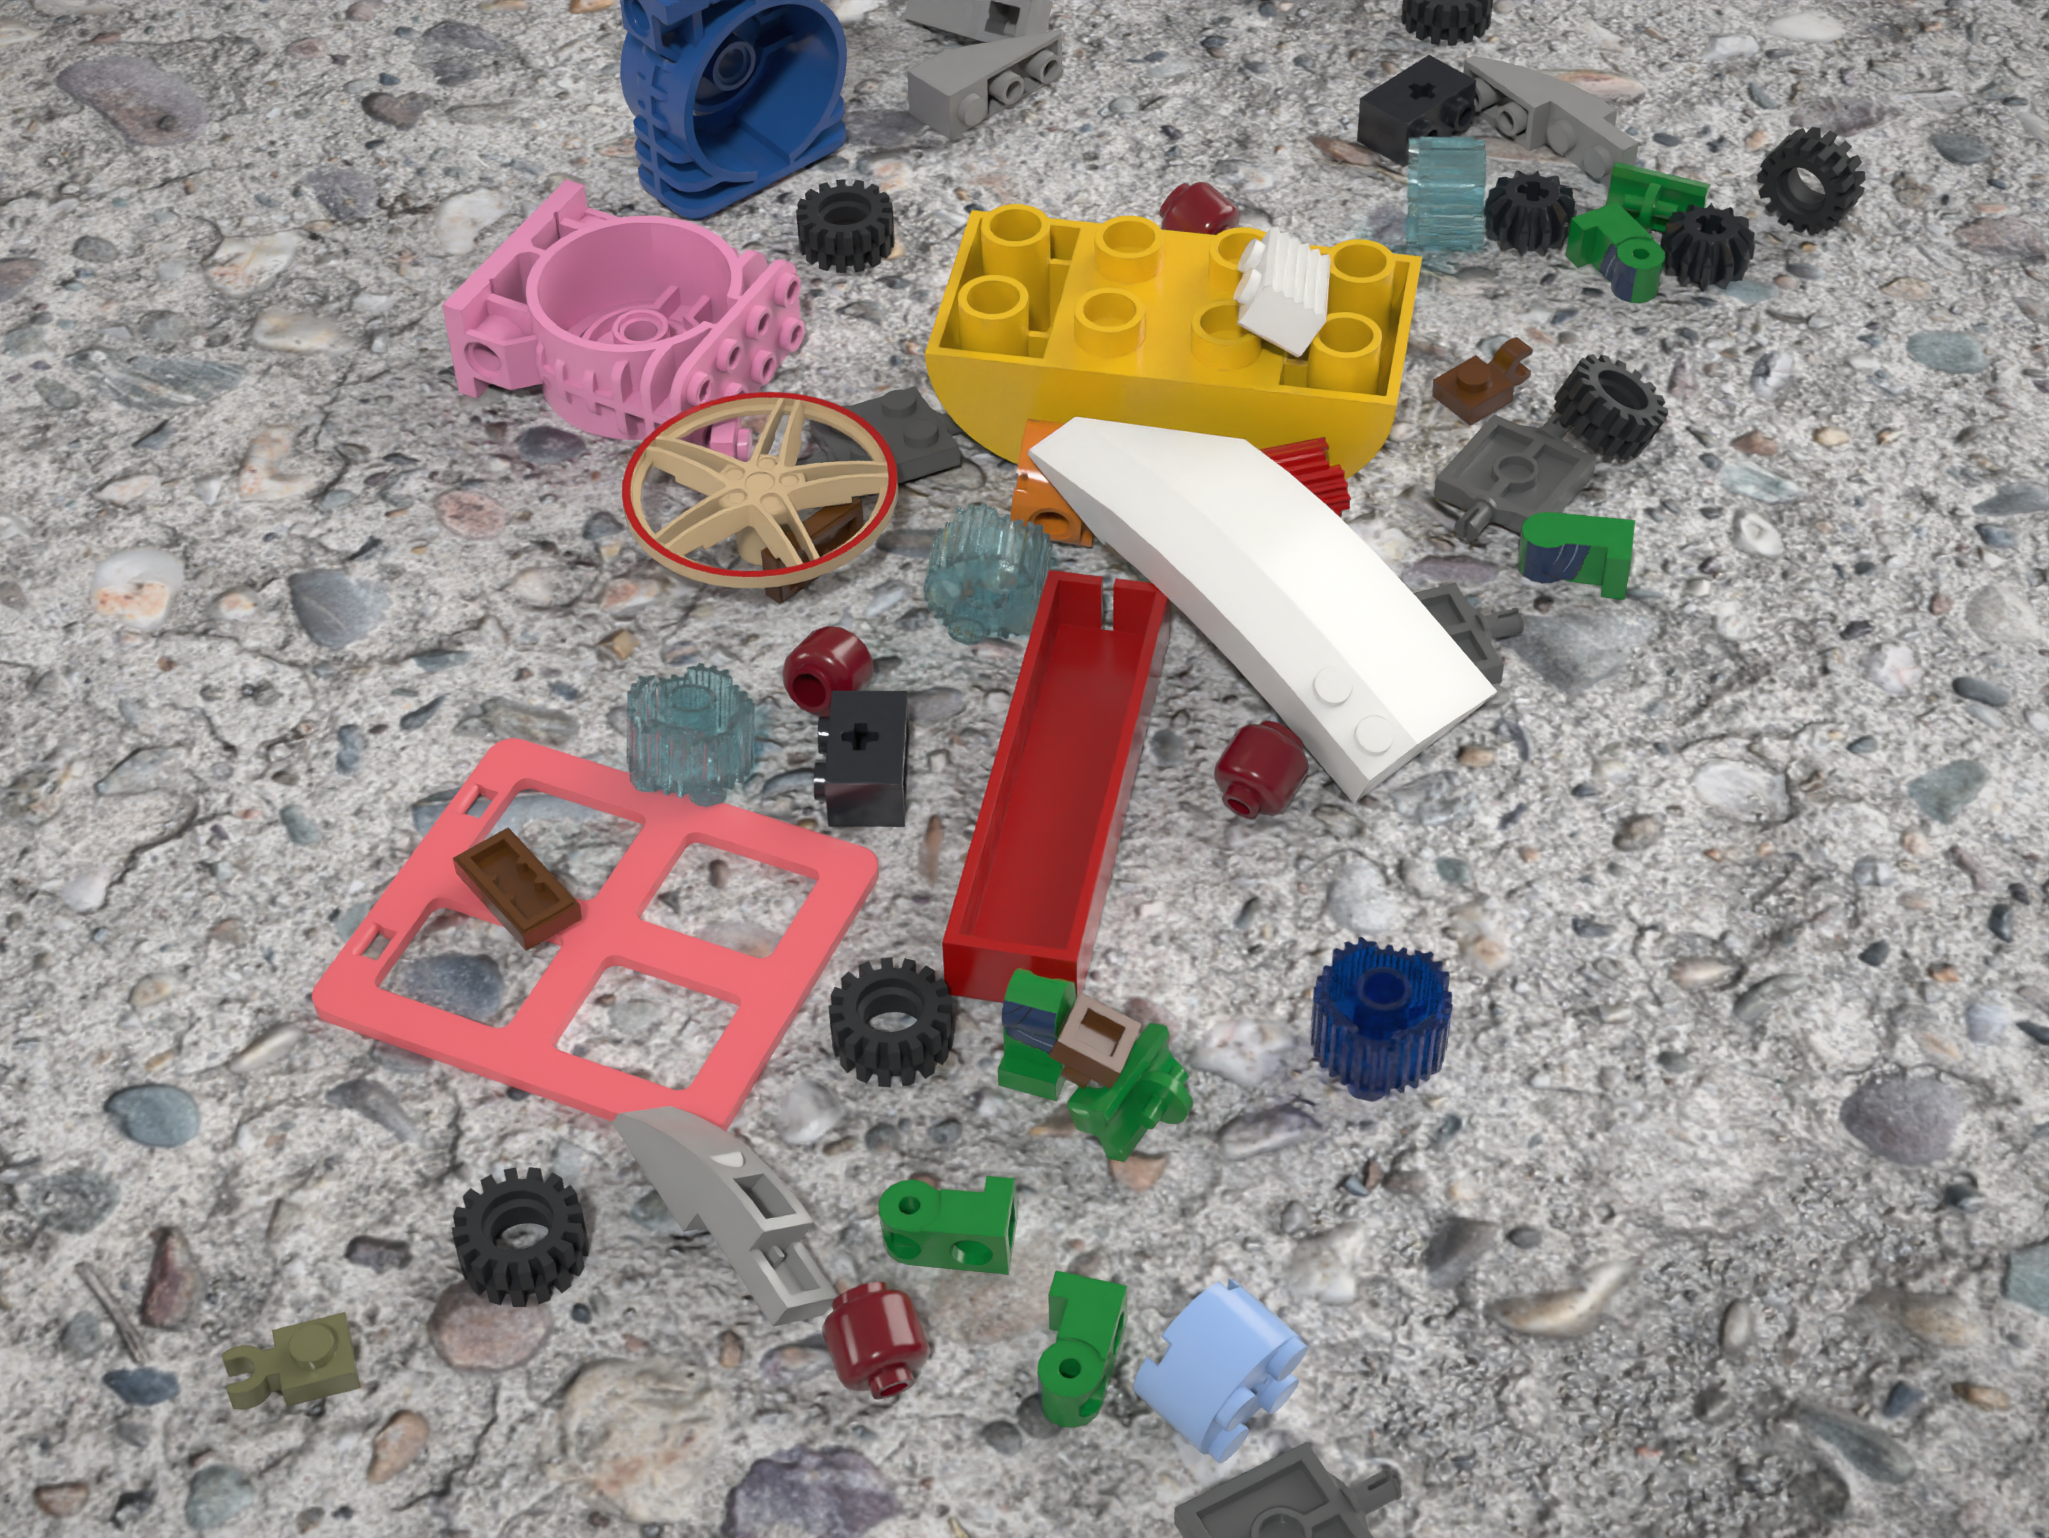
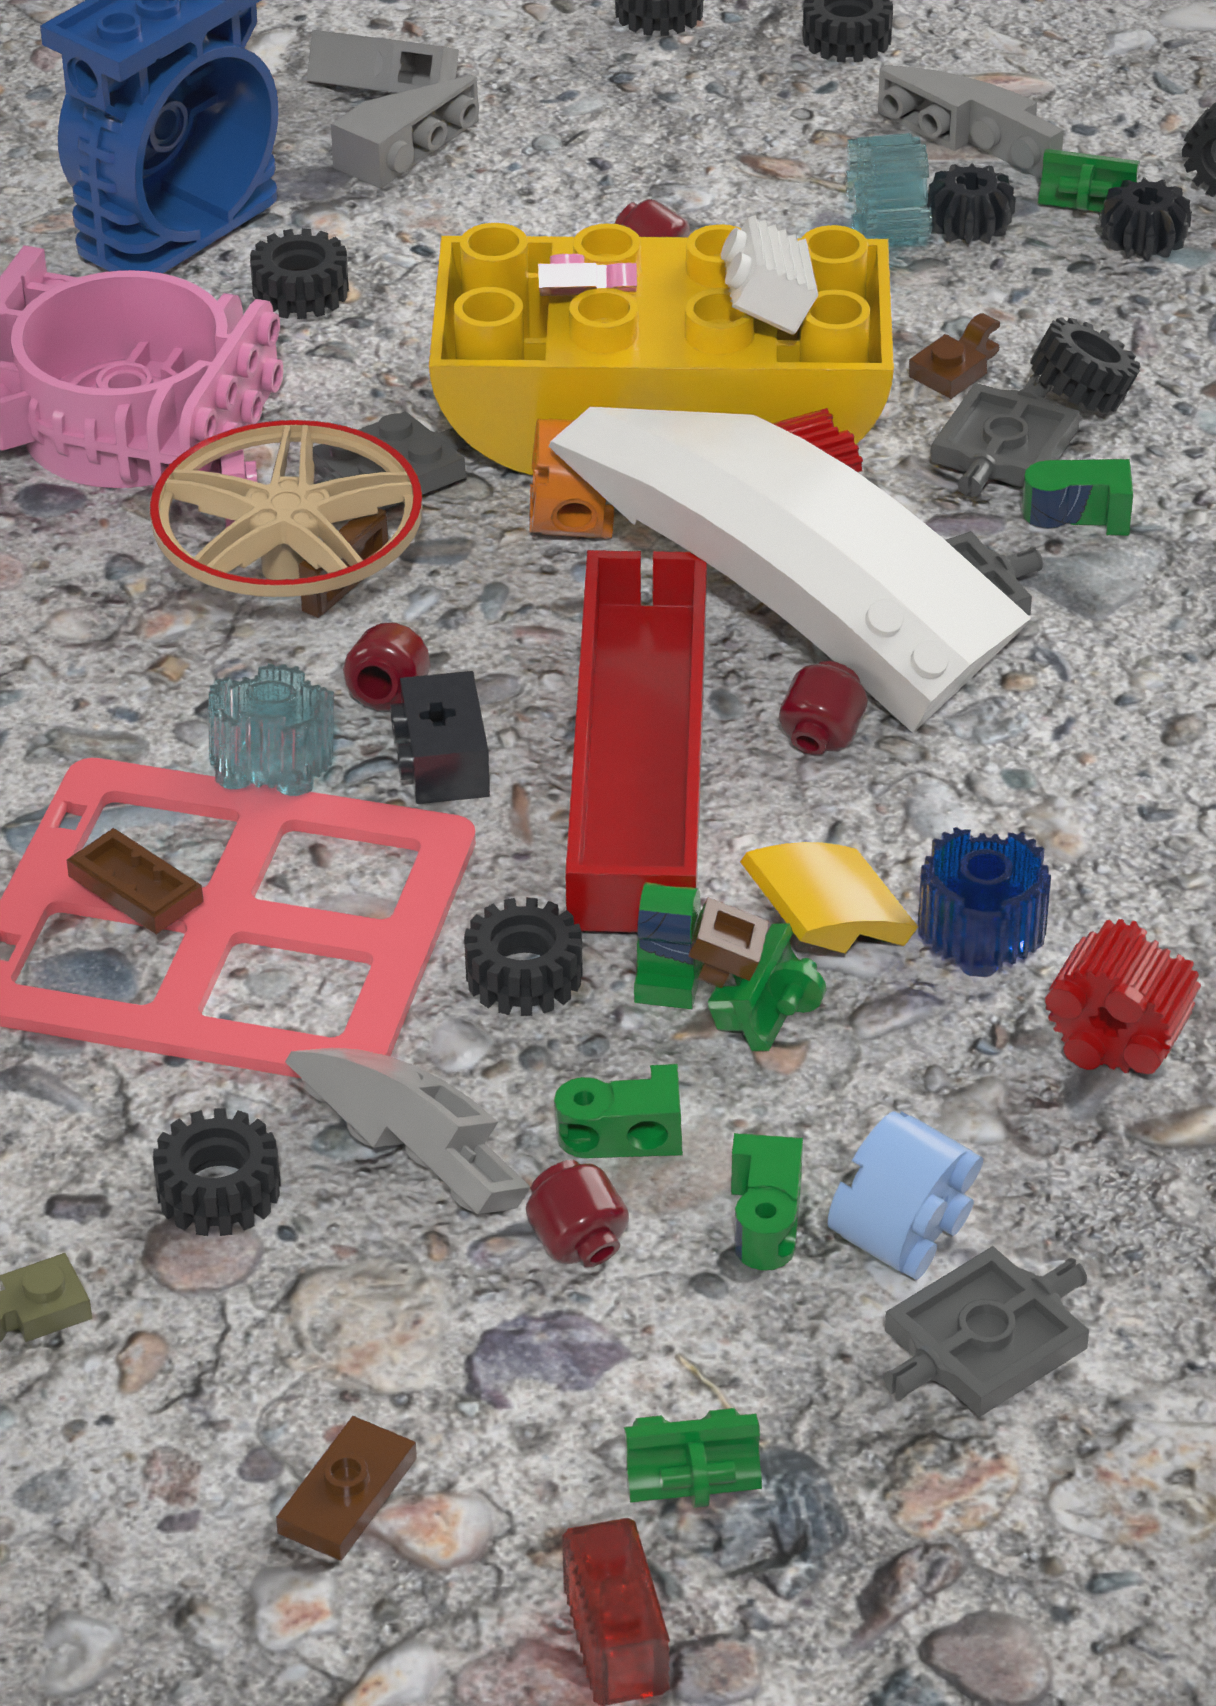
camera: 10 degrees left, 5 degrees down
(987, 574) = (525, 564): clear light blue brick -> none
(1084, 270) = (571, 276): none -> plate
(1219, 990) = (828, 894): none -> yellow slope
(1416, 103) = (838, 110): black brick -> none
(1501, 1162) = (1121, 999): none -> red brick
(1618, 250) = (1061, 230): green leg -> none

